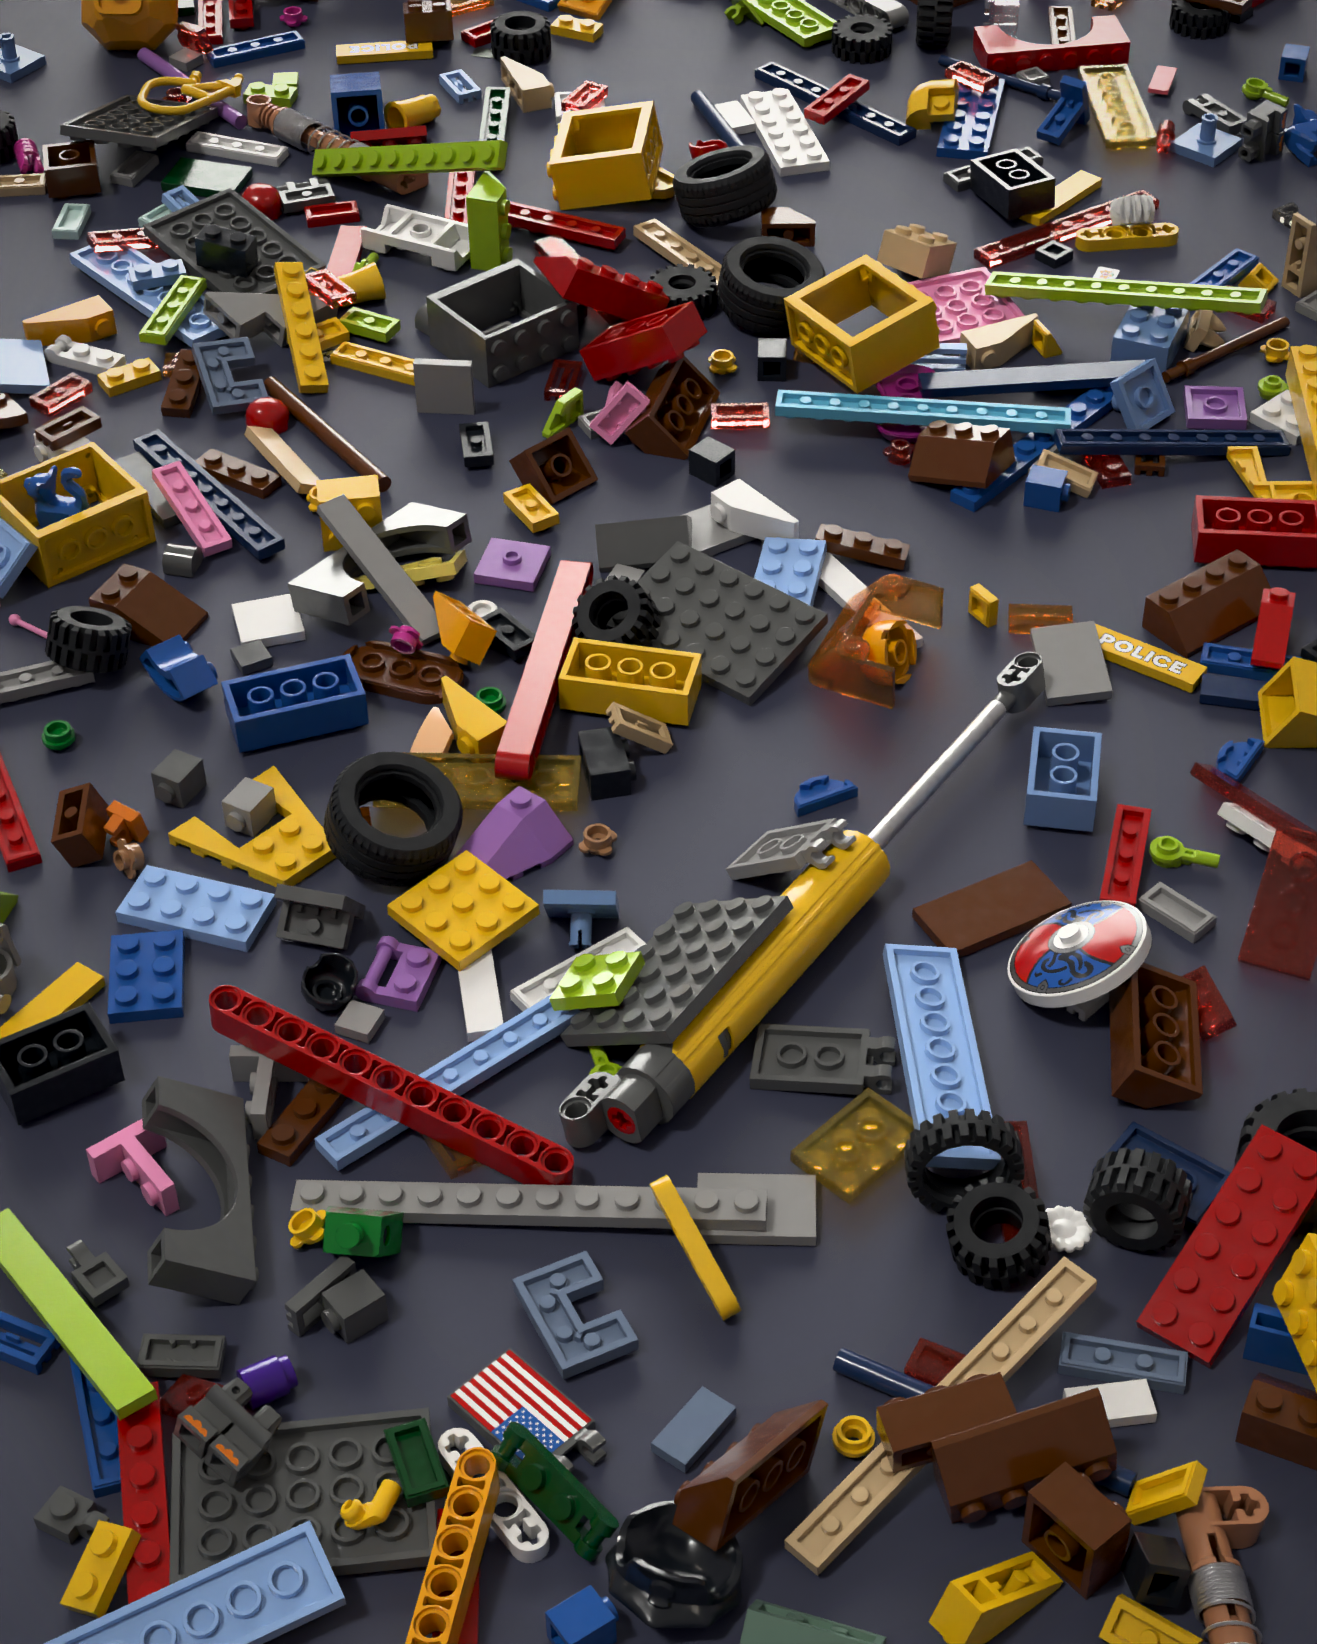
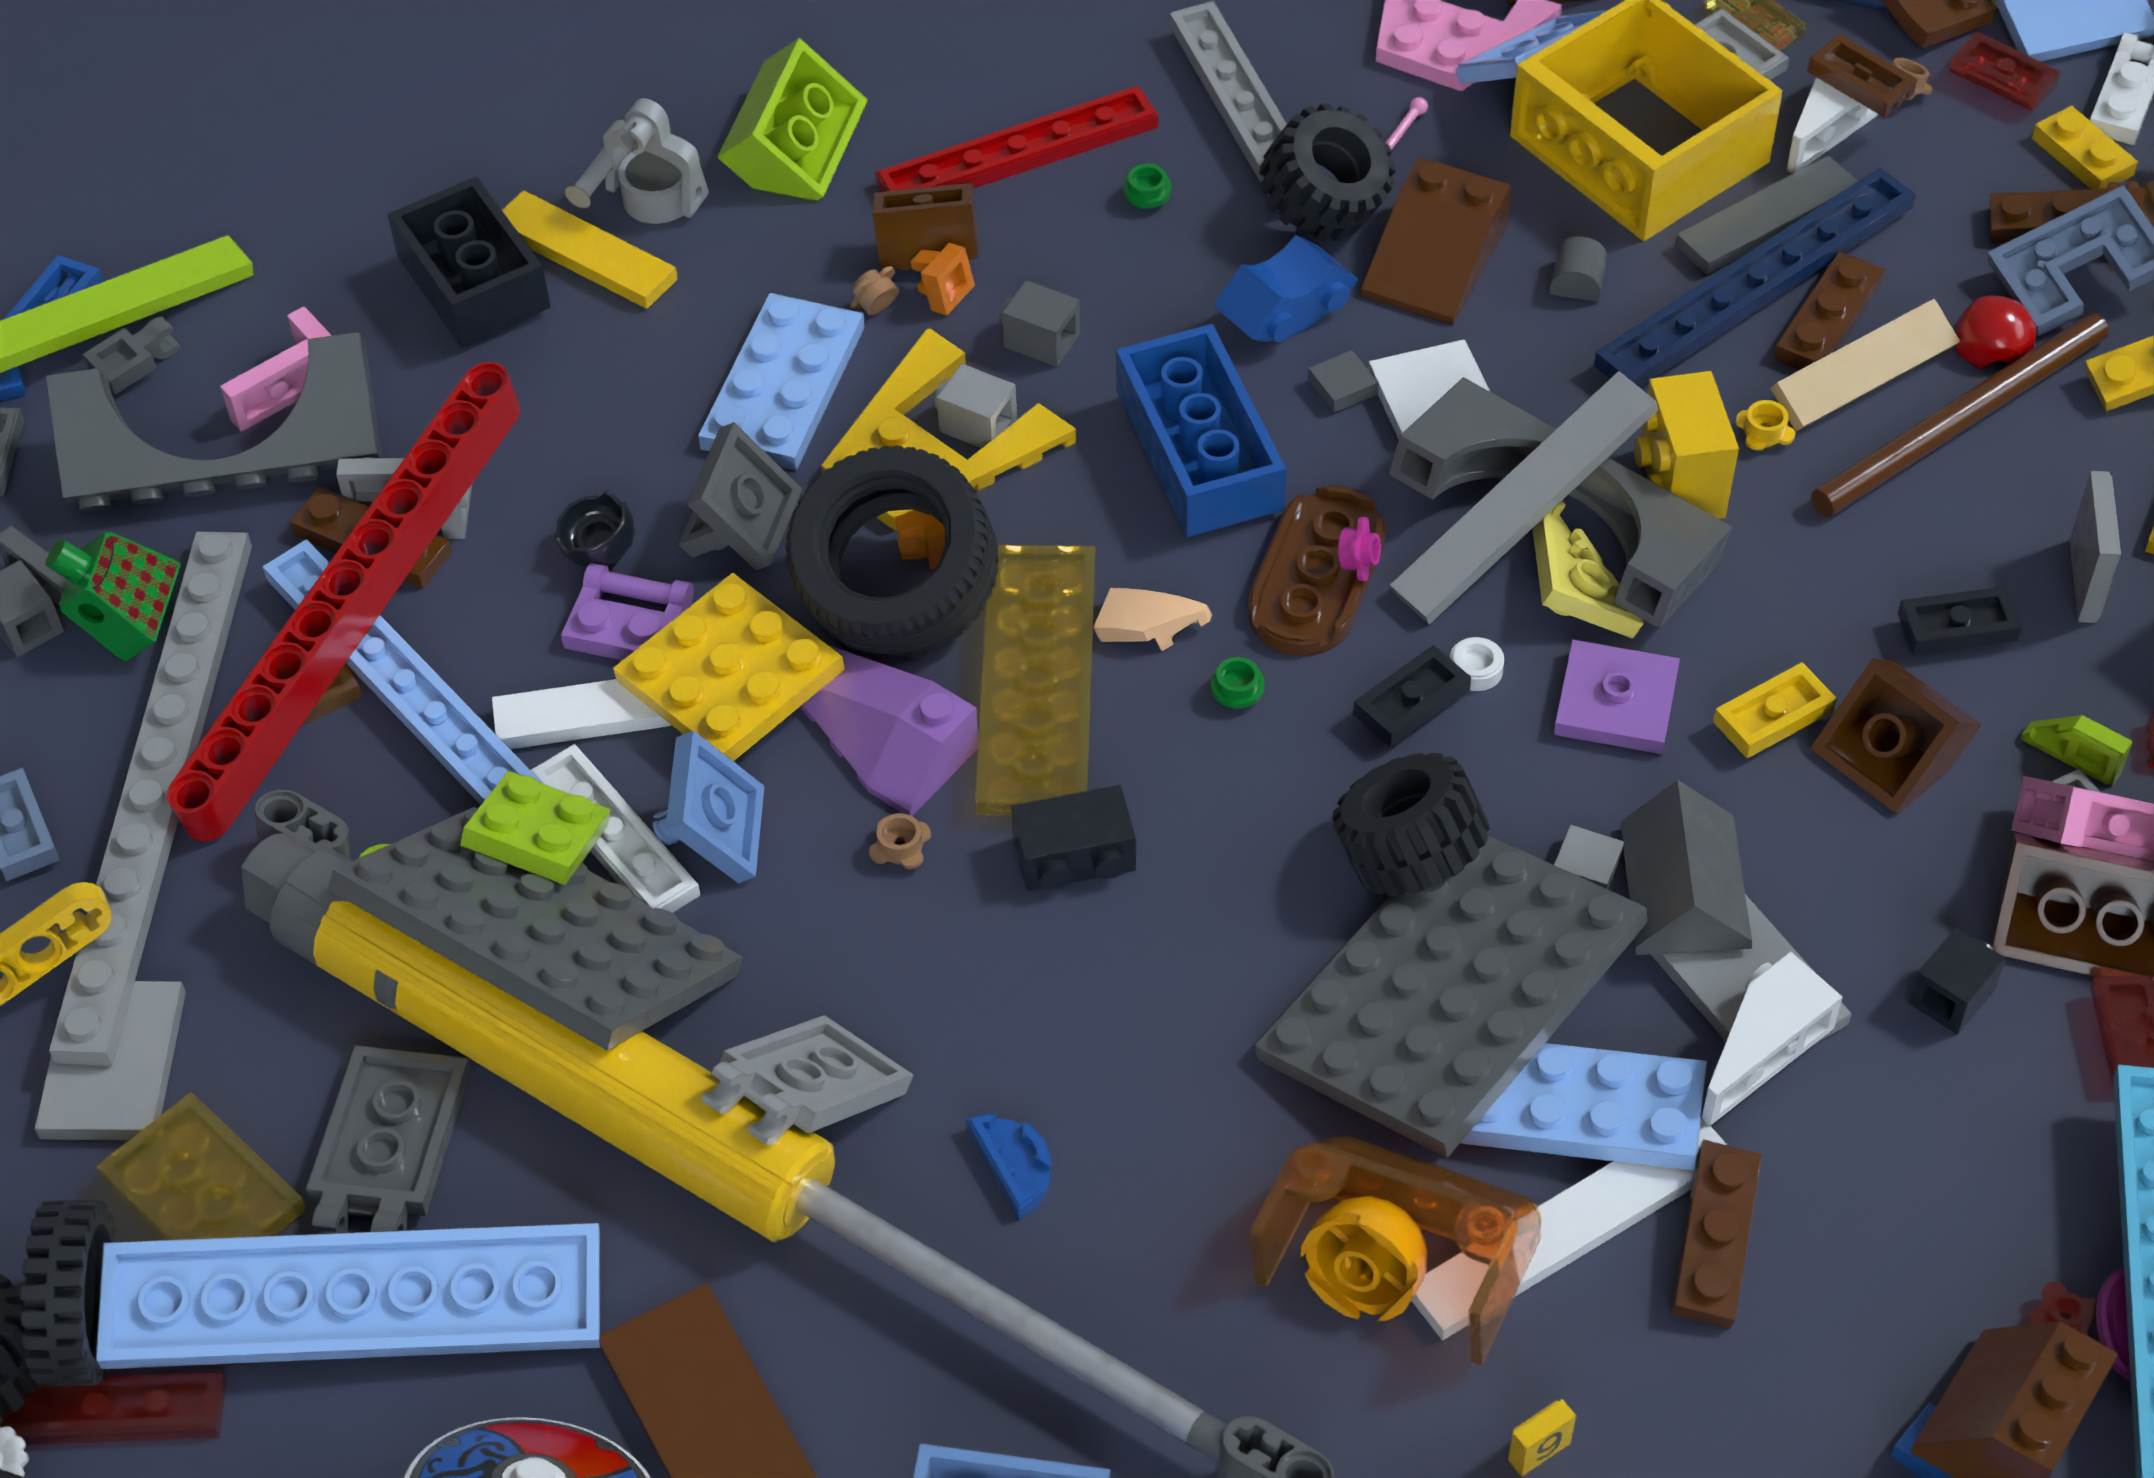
camera: 90 degrees right, 10 degrees up
(53, 507) = (1643, 84): blue animal -> none
(146, 976) = (652, 345): blue plate -> none
(192, 508) = (1692, 257): bright pink plate -> none
(306, 1227) = (169, 543): yellow plate -> none
(359, 1021) = (539, 579): light grey tile -> none
(462, 630) = (1411, 621): light orange slope -> none
(472, 722) = (1173, 655): yellow slope -> none
(539, 682) = (1295, 737): beam -> none
(638, 677) = (1265, 860): yellow brick -> none
(639, 728) = (1124, 881): tan tile -> none

